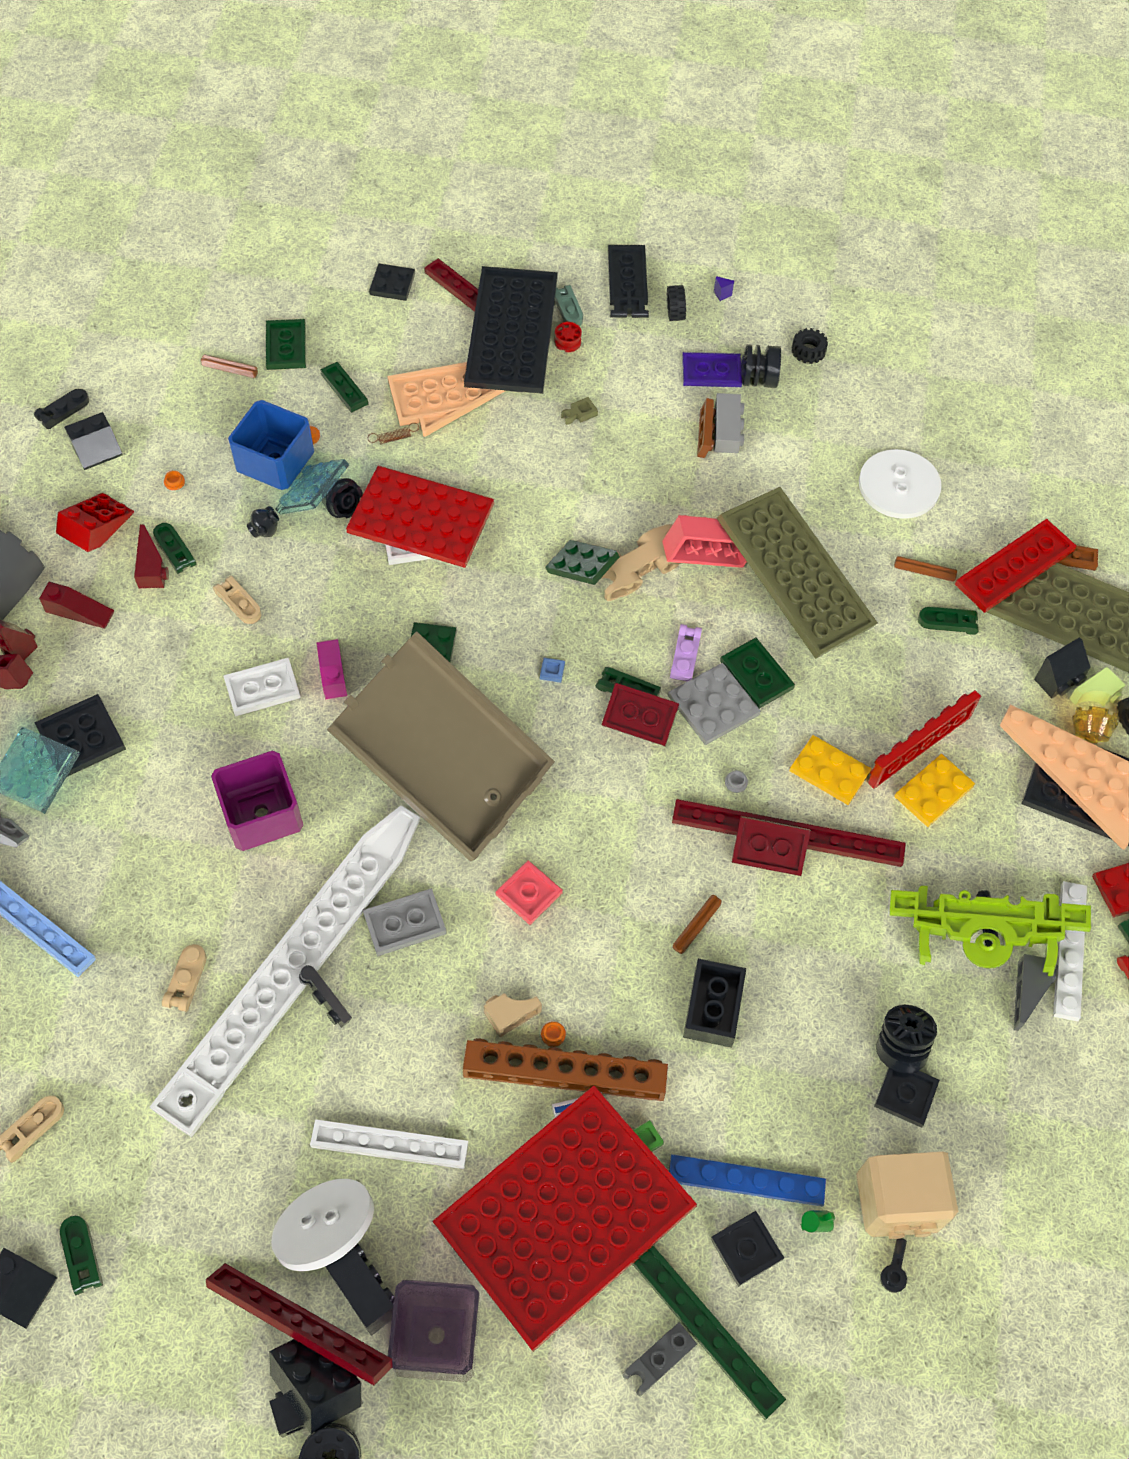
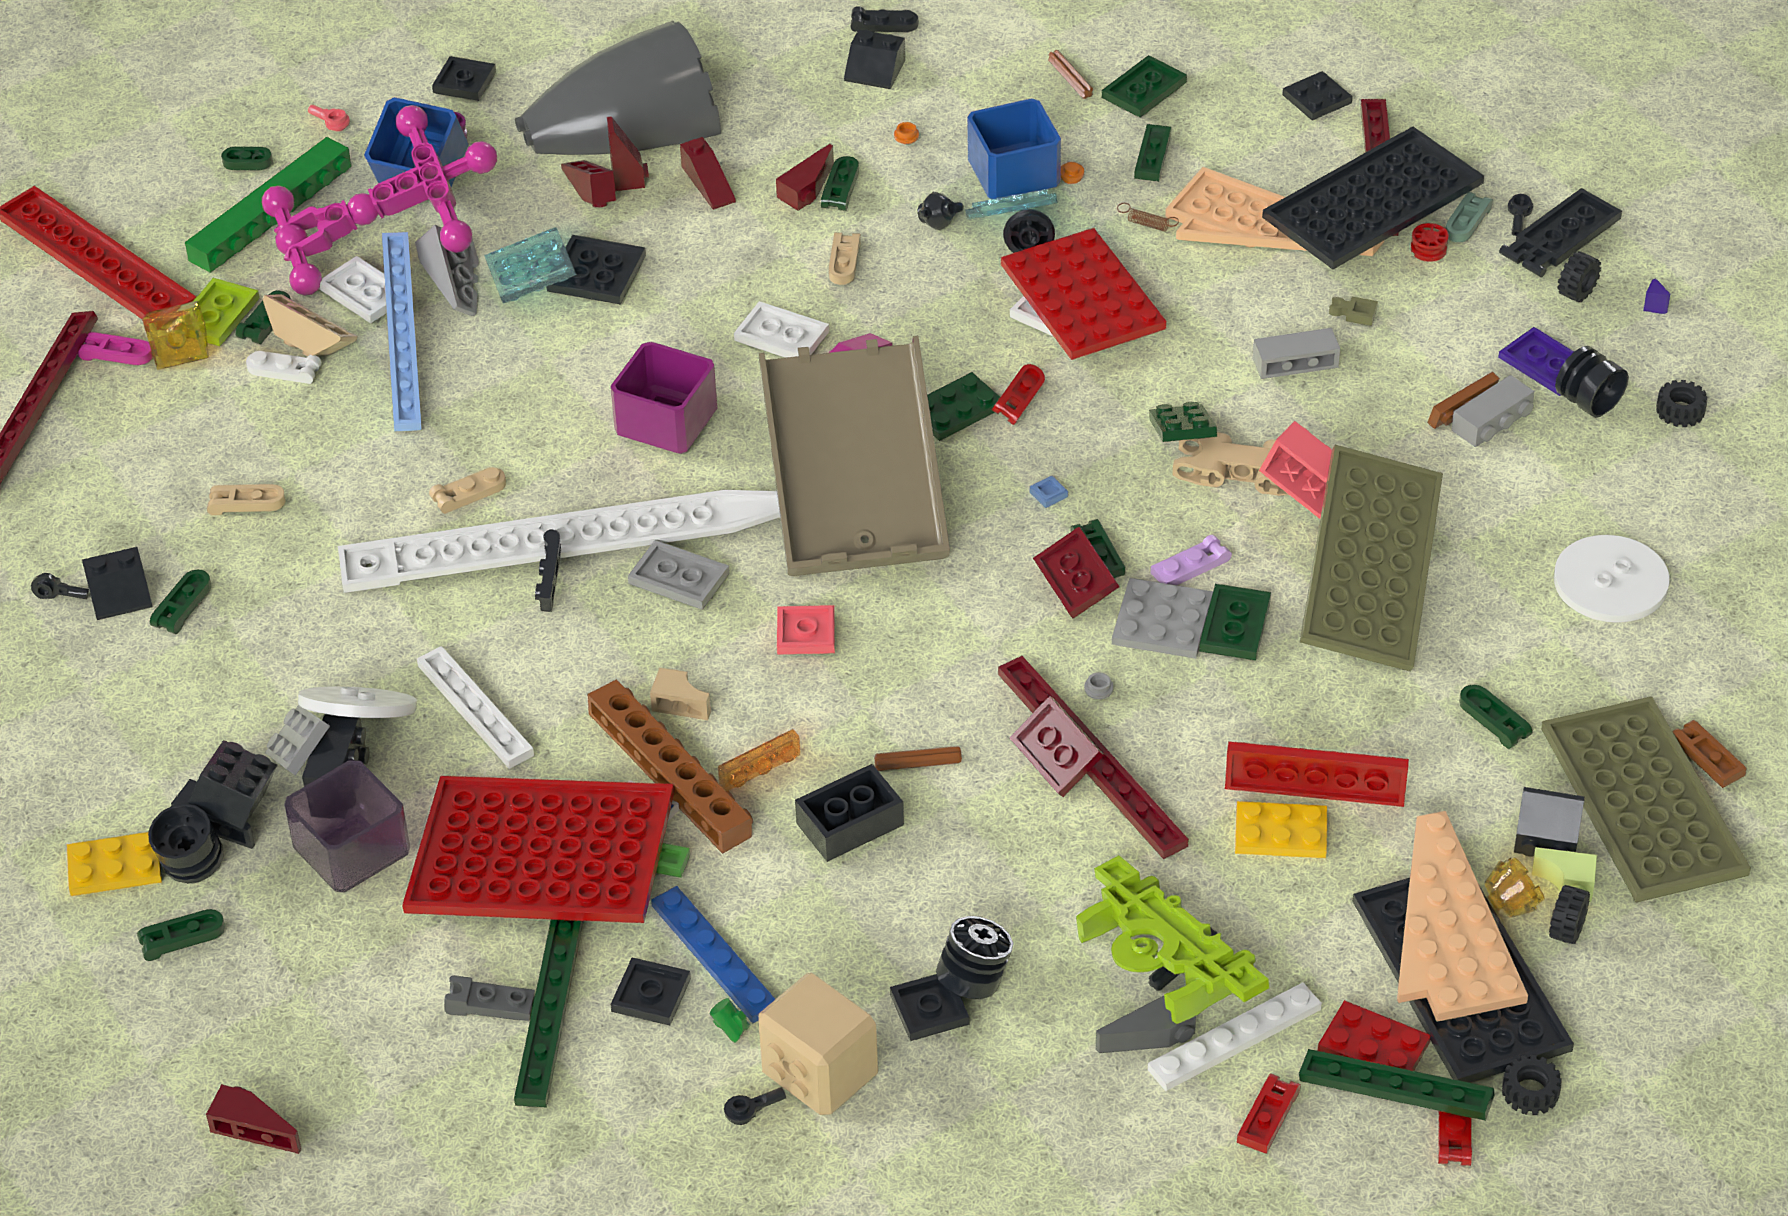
camera: 50 degrees right, 15 degrees down
(92, 521) = (798, 120): red slope -> none
(300, 1324) = (263, 741): dark red plate -> none
(321, 1292) = (296, 739): none -> light grey plate
(461, 615) = (1020, 392): none -> red plate
(553, 1034) = (694, 737): orange plate -> none
(583, 464) = (1296, 353): none -> light grey brick
(587, 279) = (1520, 206): none -> black plate
(616, 1015) = (759, 760): none -> clear orange plate
(830, 769) = (1198, 741): yellow plate -> none
(925, 568) = (1532, 661): dark orange axle -> none
(1015, 565) = (1624, 712): red plate -> none

